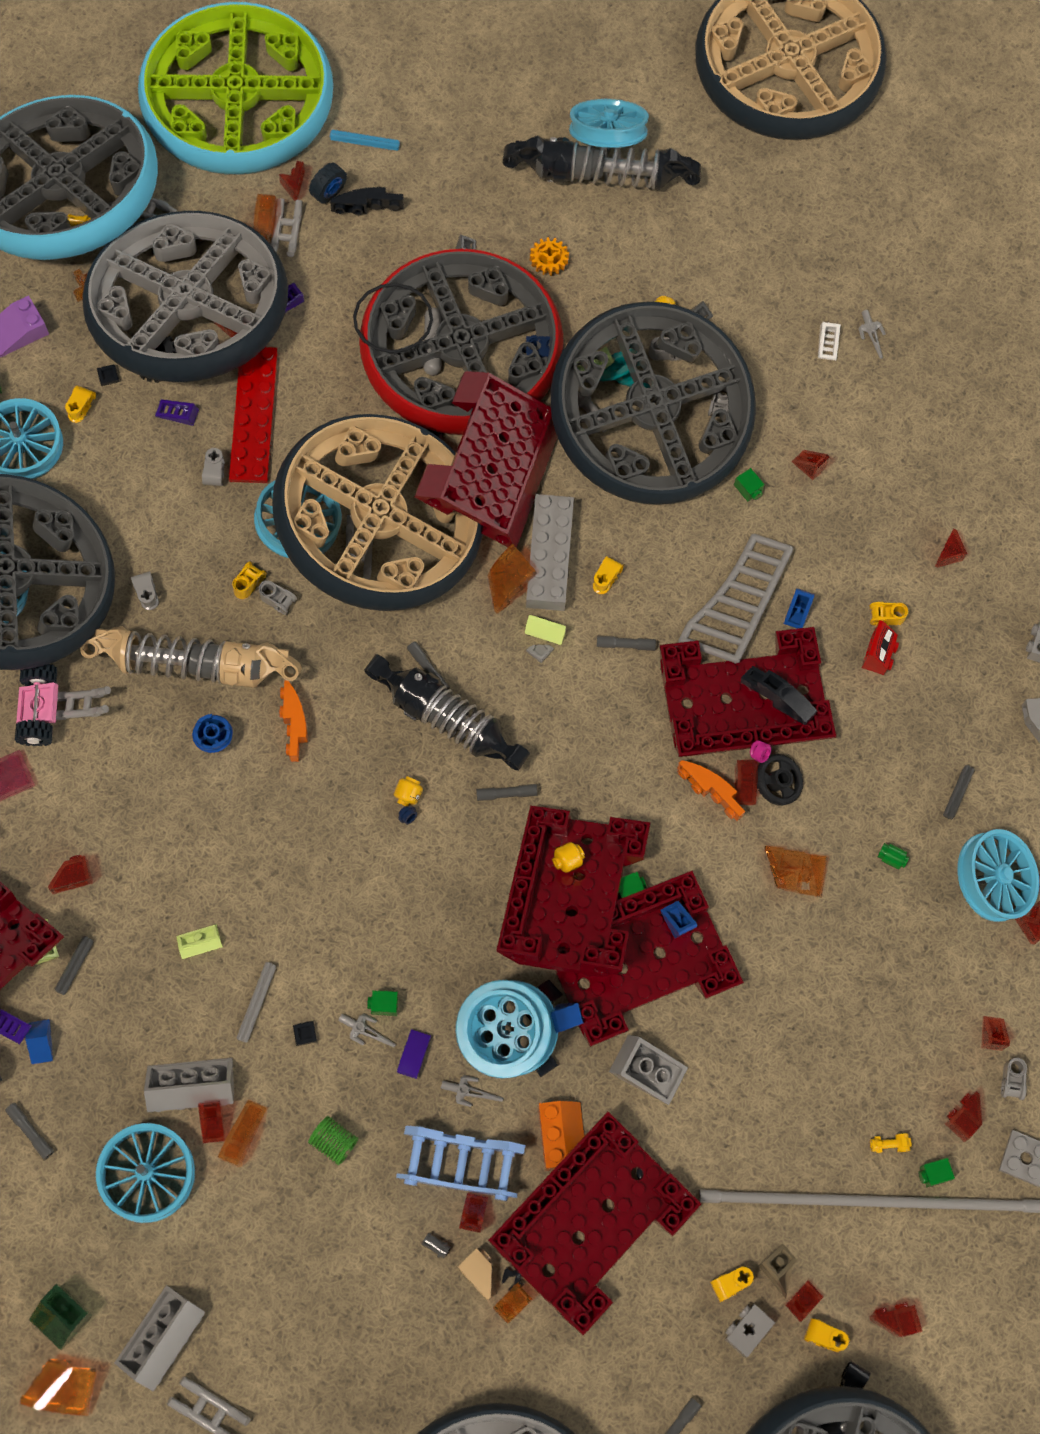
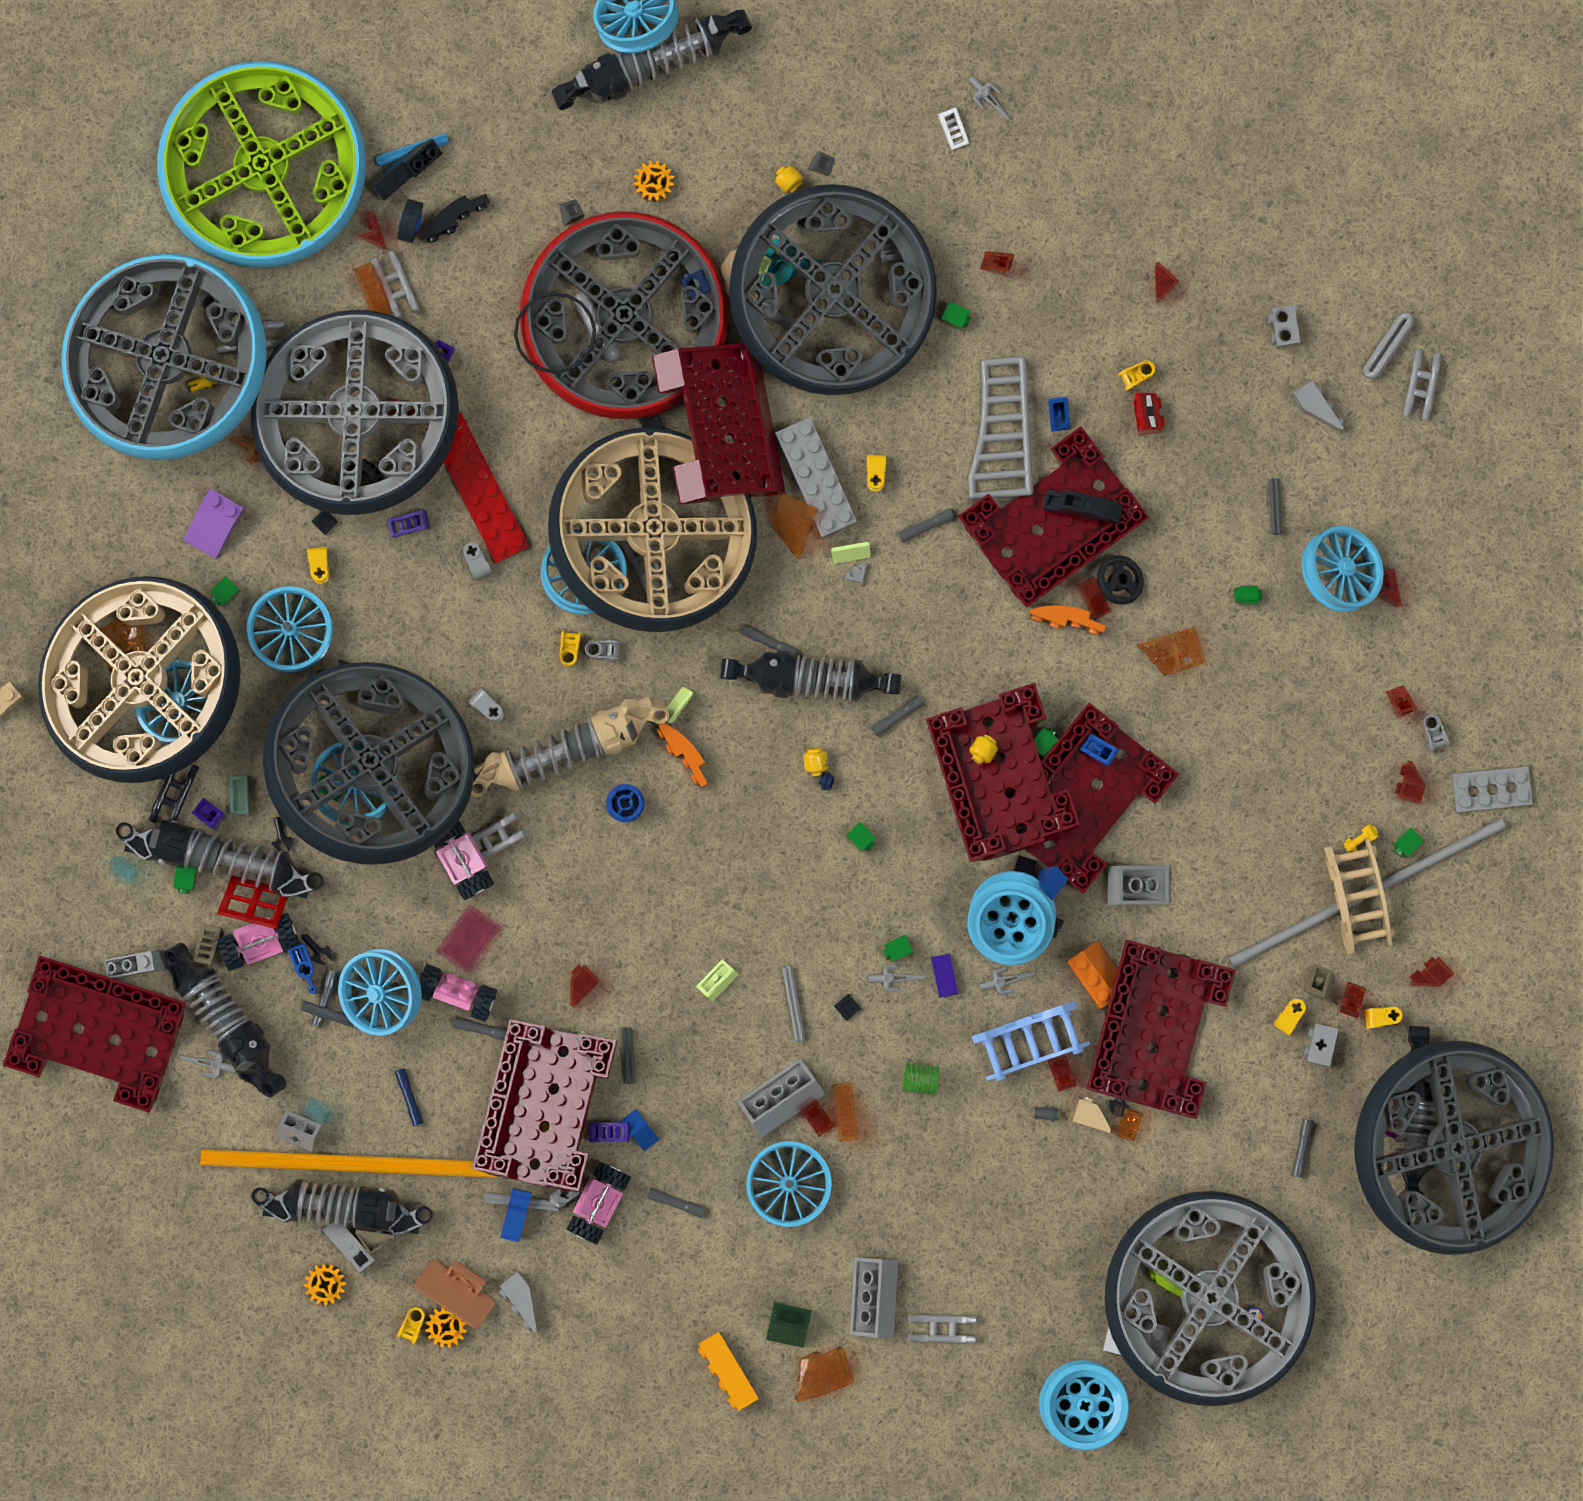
camera: 25 degrees left, 15 degrees up
(313, 679) = (678, 704): none -> yellowish green slope
(350, 147) = (406, 167): none -> black slope
(410, 882) = (861, 837): none -> green brick
(760, 751) = (1094, 568): dark pink tile -> none
(845, 1191) = (1342, 899): none -> tan fence

